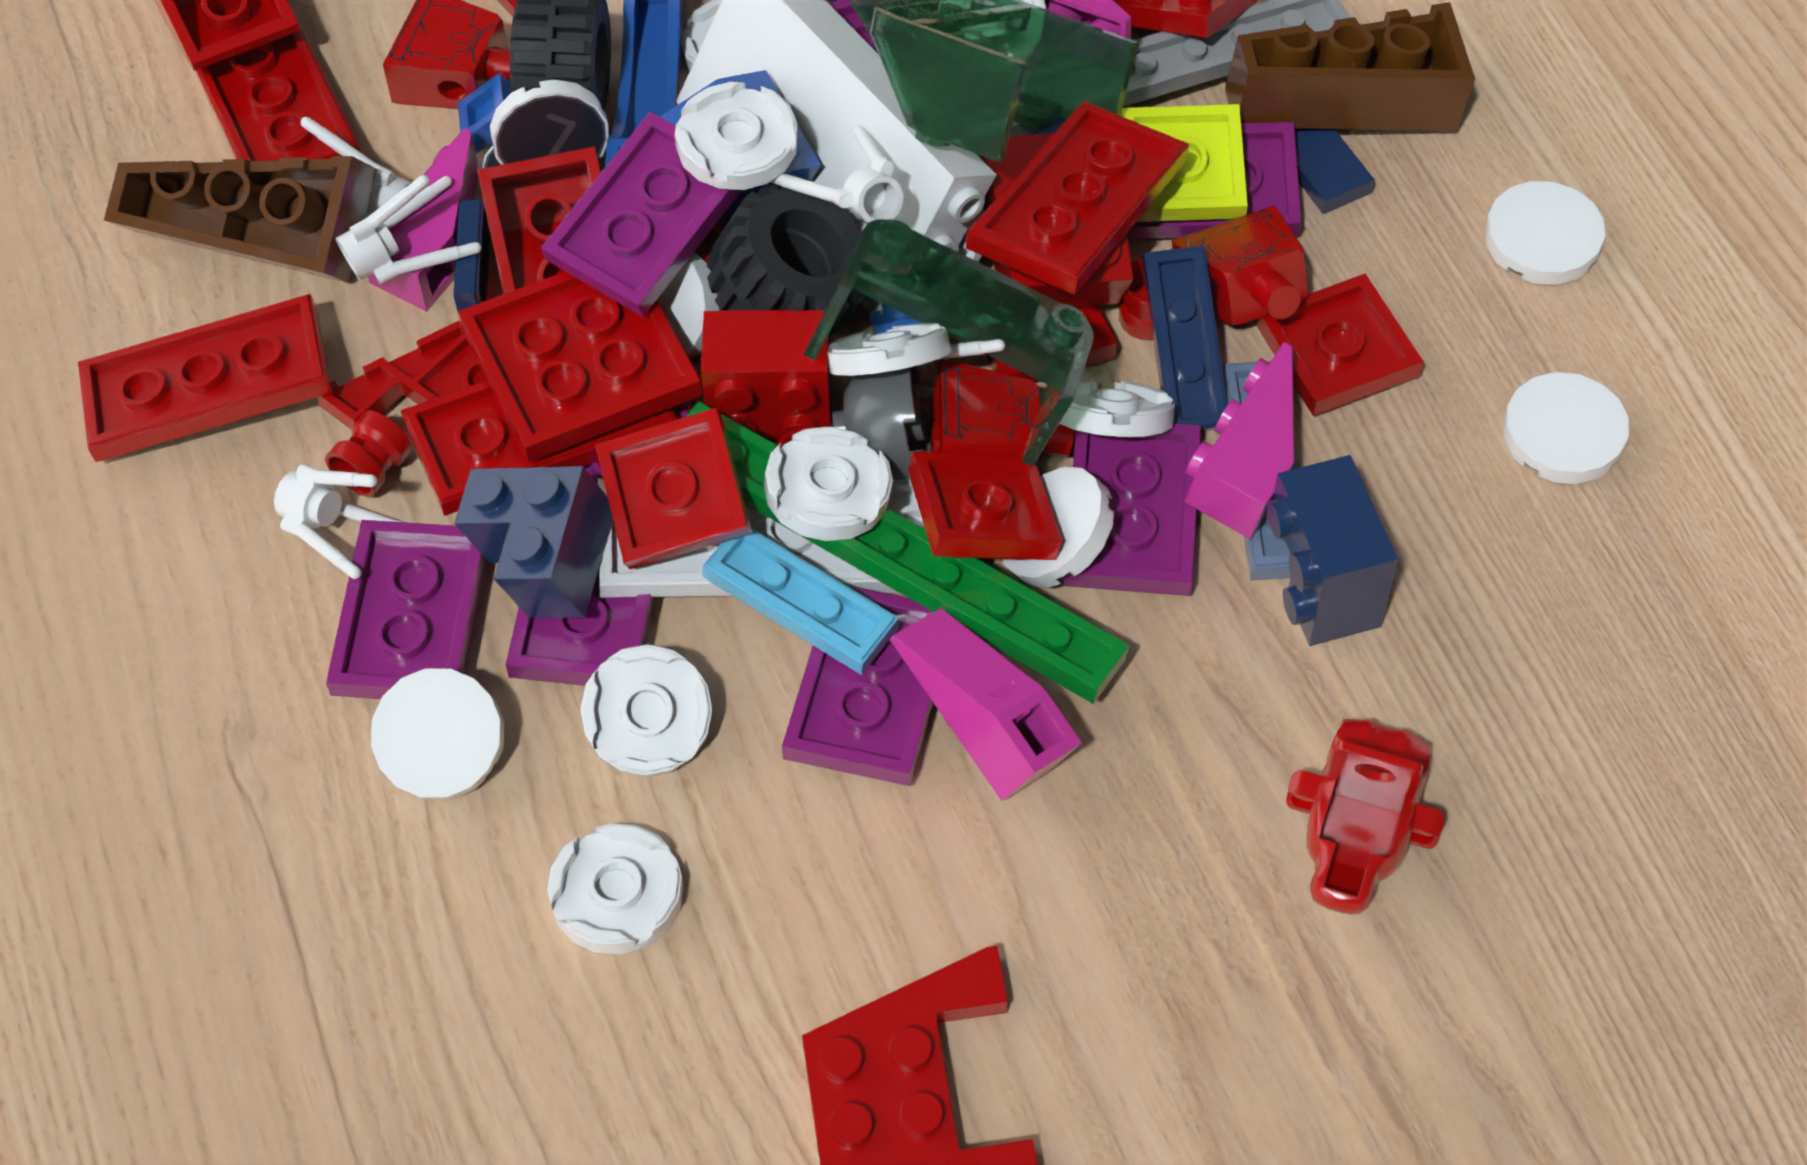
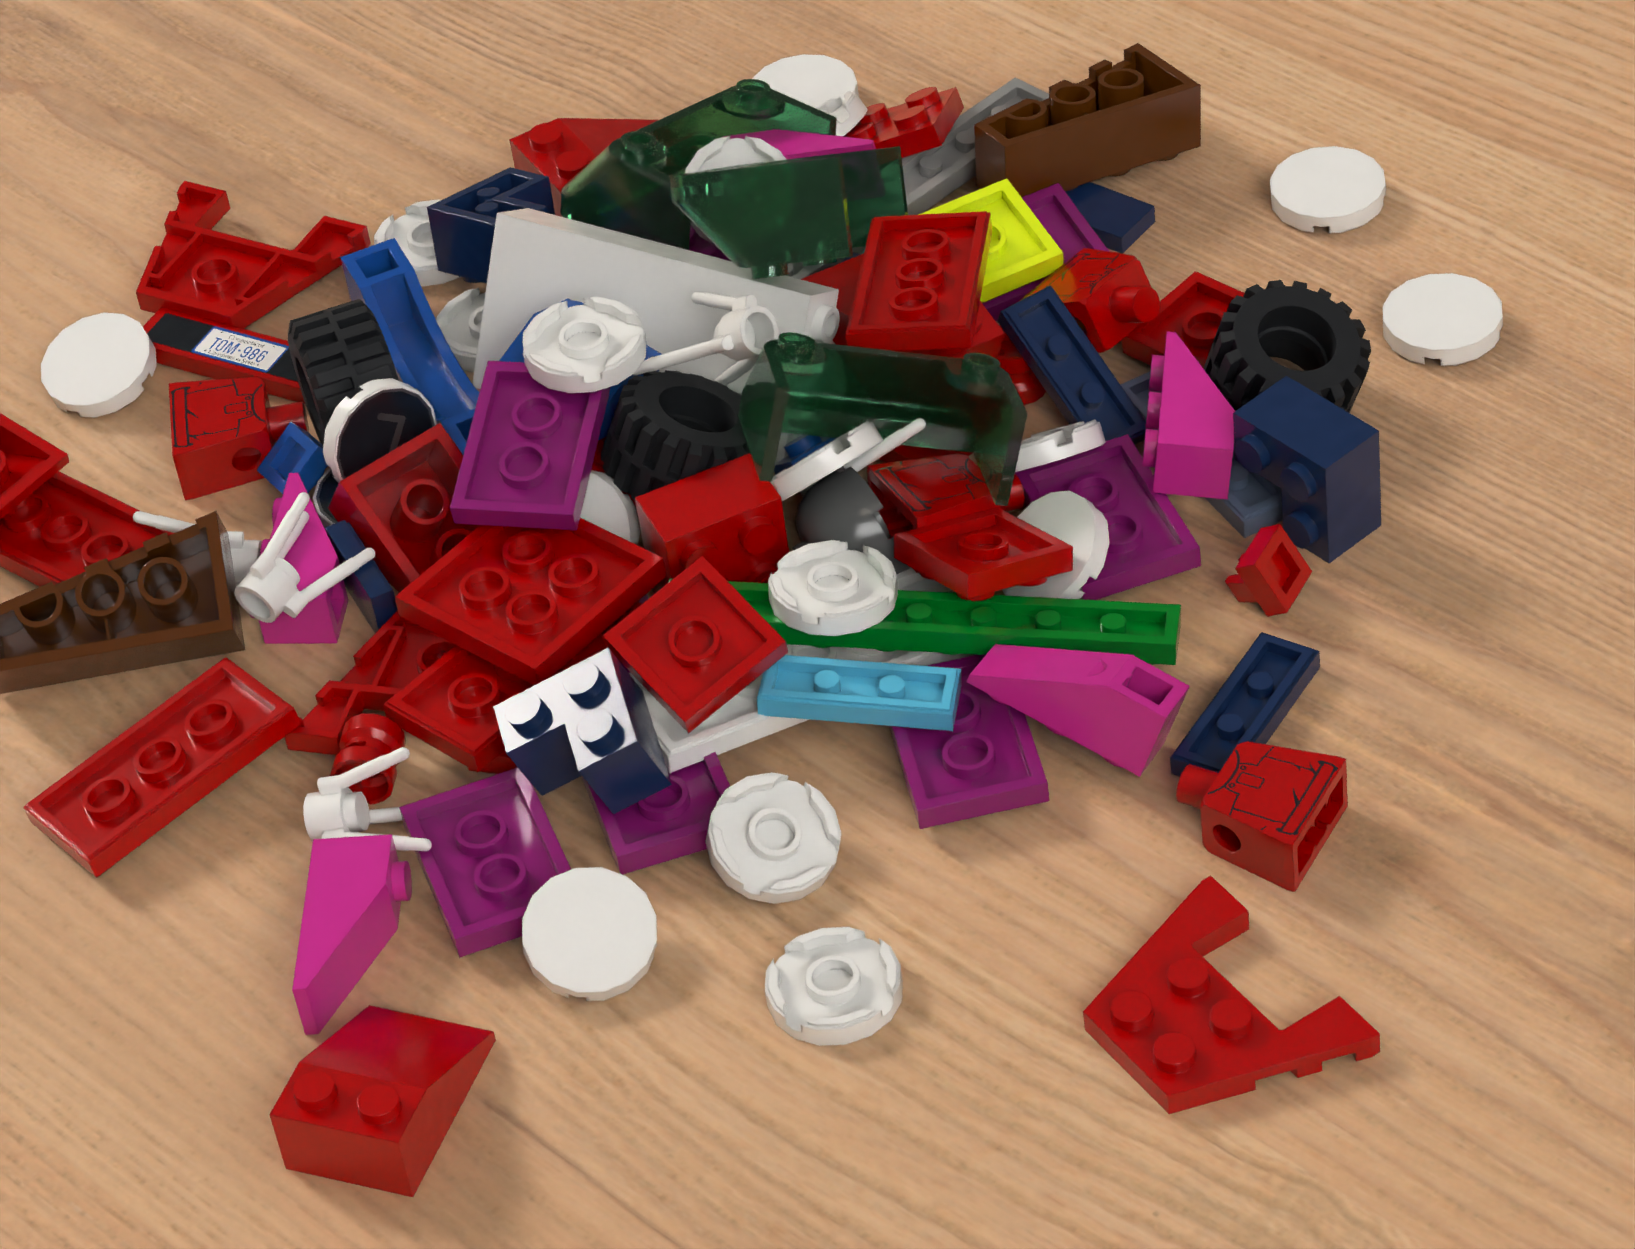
camera: 20 degrees left, 15 degrees down
(183, 807) = (378, 1098): none -> red slope
(253, 614) = (346, 920): none -> dark pink slope
(1088, 900) = (1268, 808): none -> red torso
(1136, 777) = (1248, 702): none -> dark blue tile
(1242, 639) = (1270, 572): none -> red tile
(1364, 811) = (1463, 638): red piece -> none
(1408, 385) = (1294, 327): none -> black tyre

